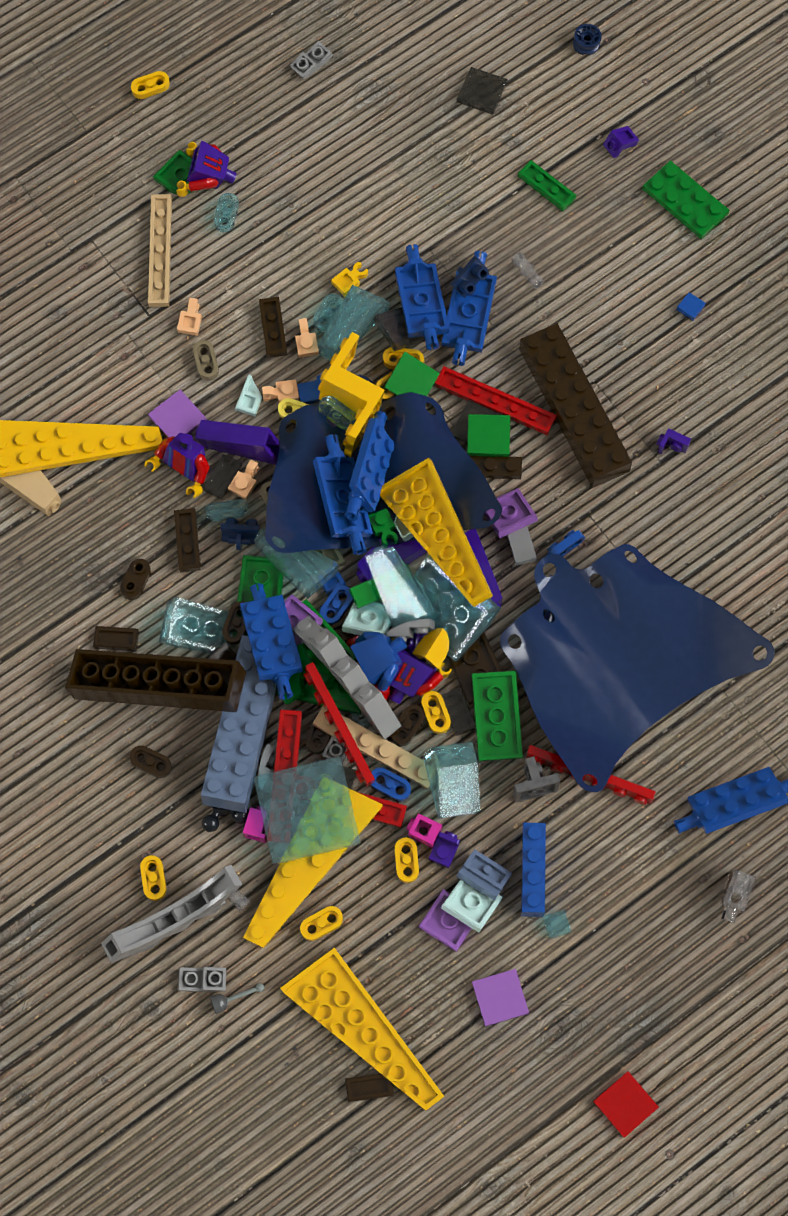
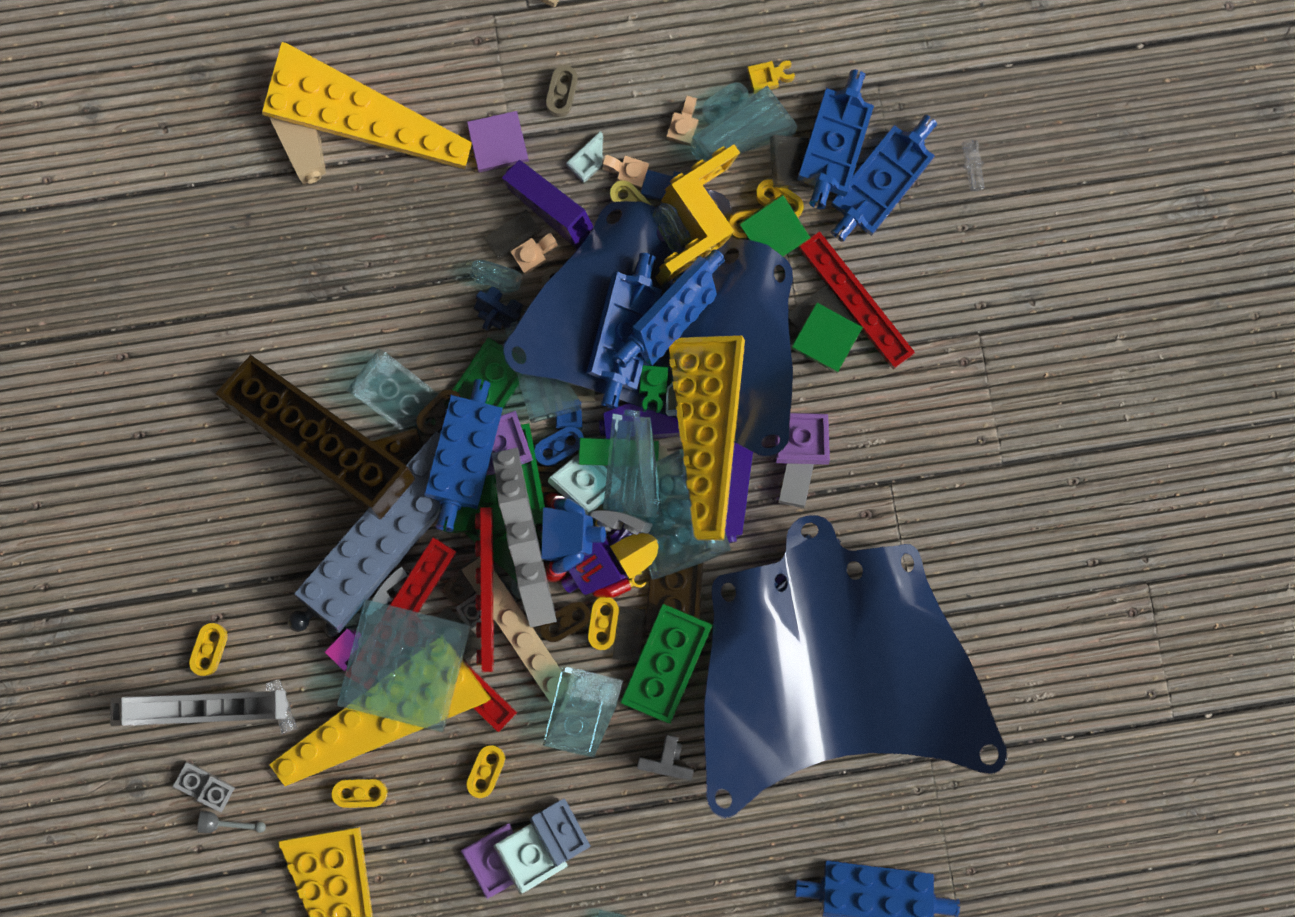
camera: 20 degrees right, 10 degrees up
(116, 638) = (304, 360): dark brown tile -> none
(135, 578) = (361, 306): dark brown plate -> none
(151, 761) = (271, 519): dark brown plate -> none
(185, 457) = (480, 194): torso -> none
(187, 540) = (436, 289): dark brown plate -> none
(190, 321) = (568, 36): light nougat plate -> none
(273, 327) = (655, 89): dark brown plate -> none
(390, 784) = (512, 678): blue plate -> none
(423, 822) = (525, 759): dark pink brick -> none
(444, 849) = (533, 780): dark purple bracket -> none
(469, 277) = (902, 143): dark blue hips -> none
(499, 467) = (818, 378): dark brown plate -> none
(533, 869) = (614, 855): blue brick -> none
(546, 185) = (1049, 75): green tile -> none
(571, 541) = (855, 505): blue plate -> none
(575, 405) = (941, 351): dark brown brick -> none
(619, 140) = (1161, 63): dark purple bracket -> none
(619, 786) = (757, 812): red plate -> none
(673, 439) = (1032, 451): dark purple bracket -> none
(685, 199) = (1198, 170): green plate -> none
(691, 306) = (1135, 300): blue tile -> none

